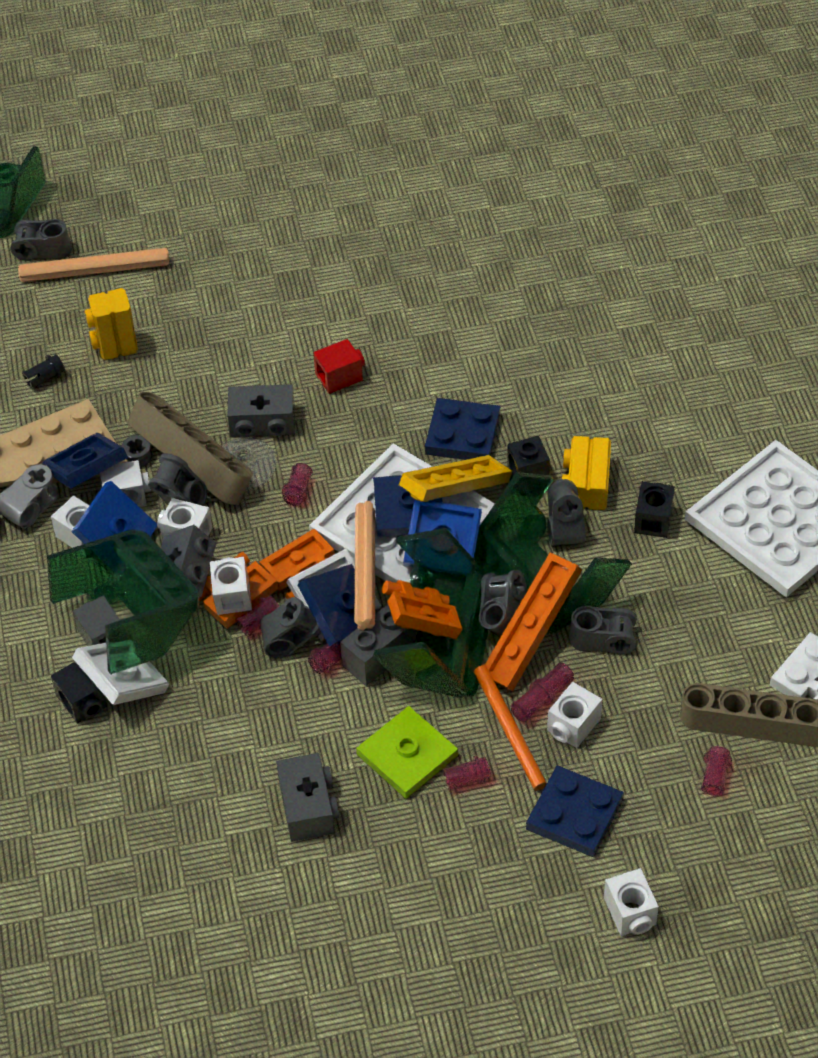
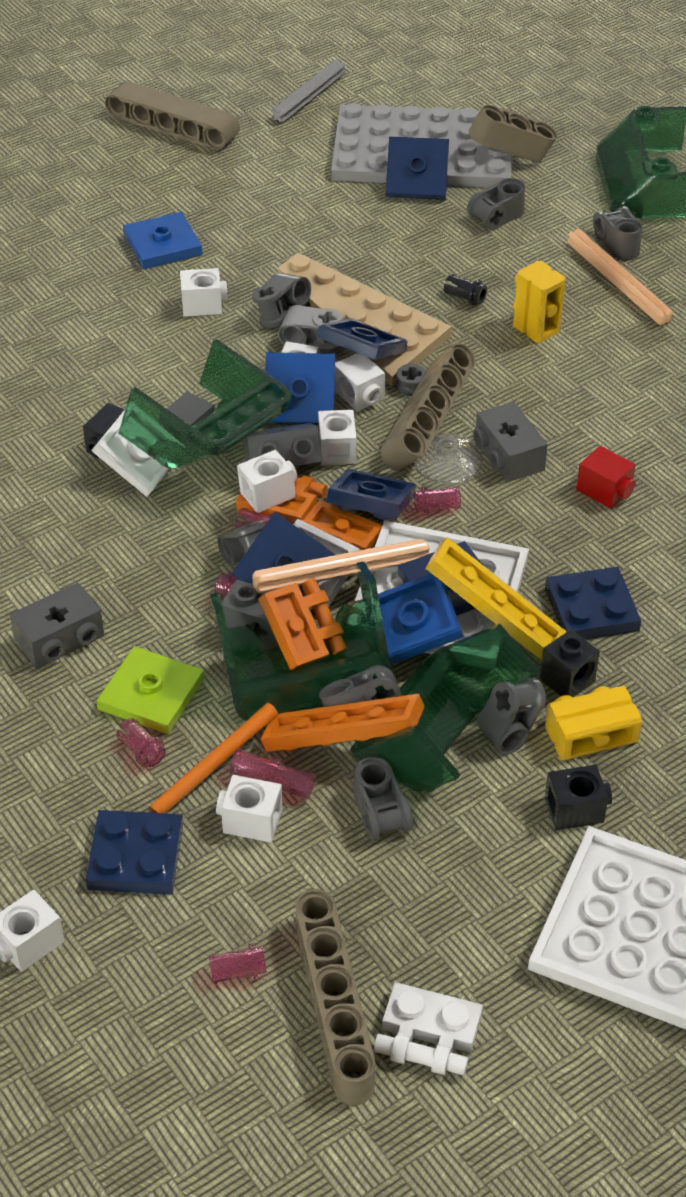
camera: 65 degrees right, 5 degrees down
(177, 481) = (369, 401): dark grey piece -> none
(274, 522) = (371, 493): none -> dark blue plate

